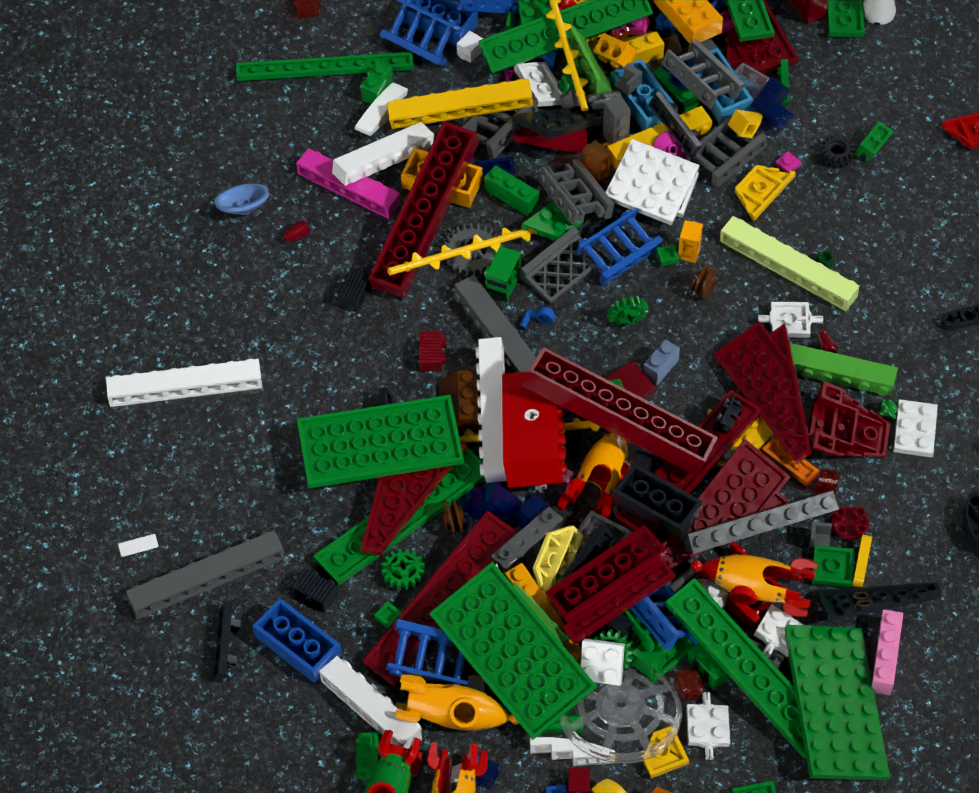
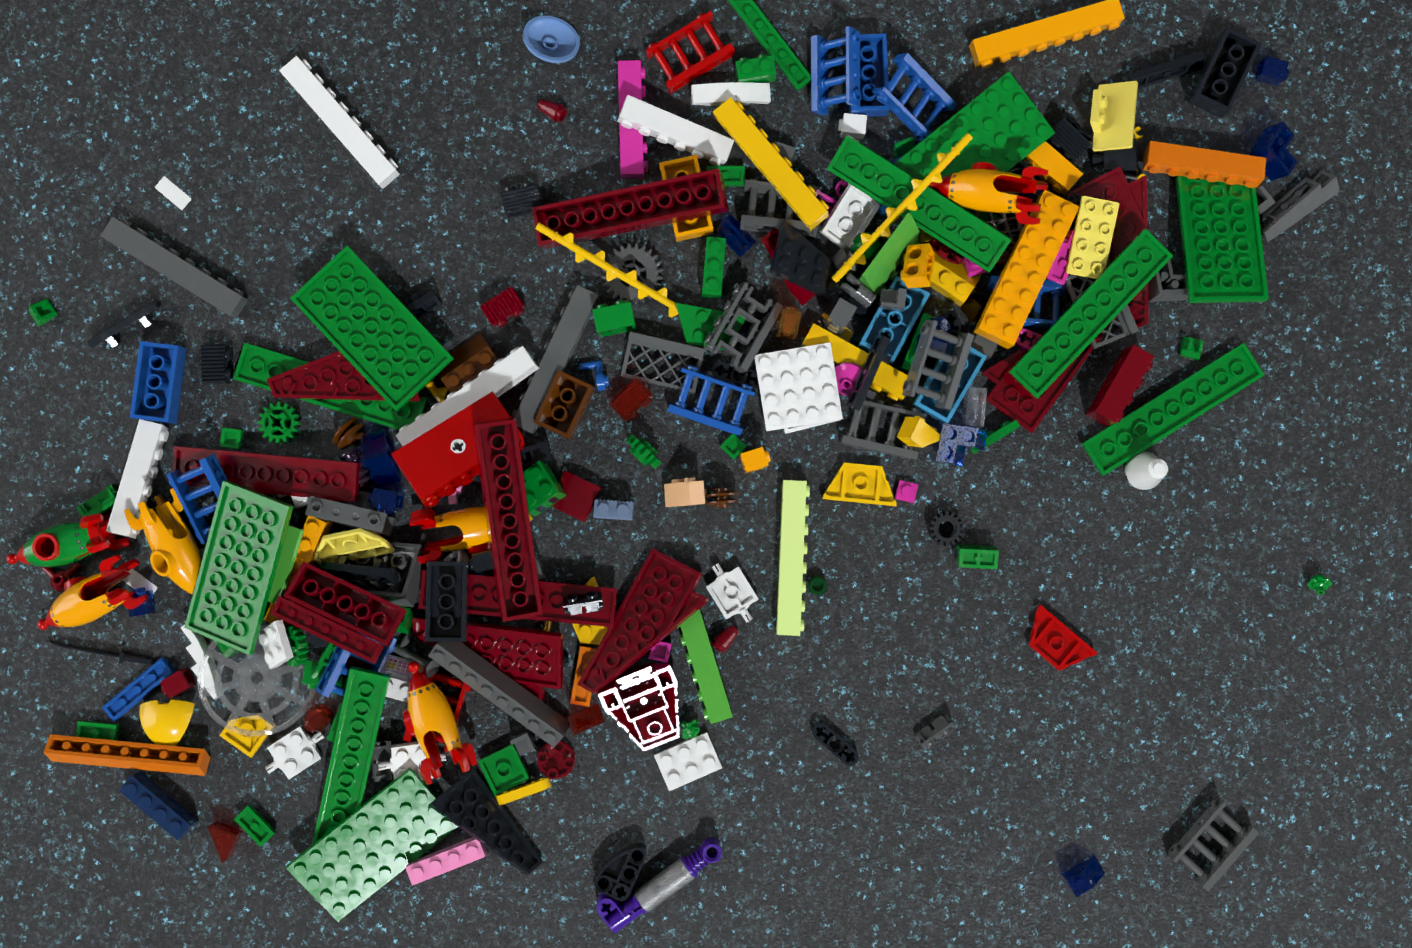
camera: 55 degrees right, 30 degrees up
(159, 708) = (42, 312): none -> green slope
(341, 125) = (706, 62): none -> red fence
(547, 334) = (564, 405): none -> reddish brown slope
(576, 301) = (631, 399): none -> clear red brick
(683, 301) = (684, 493): none -> light nougat brick
(808, 395) = (661, 651): none -> dark pink plate

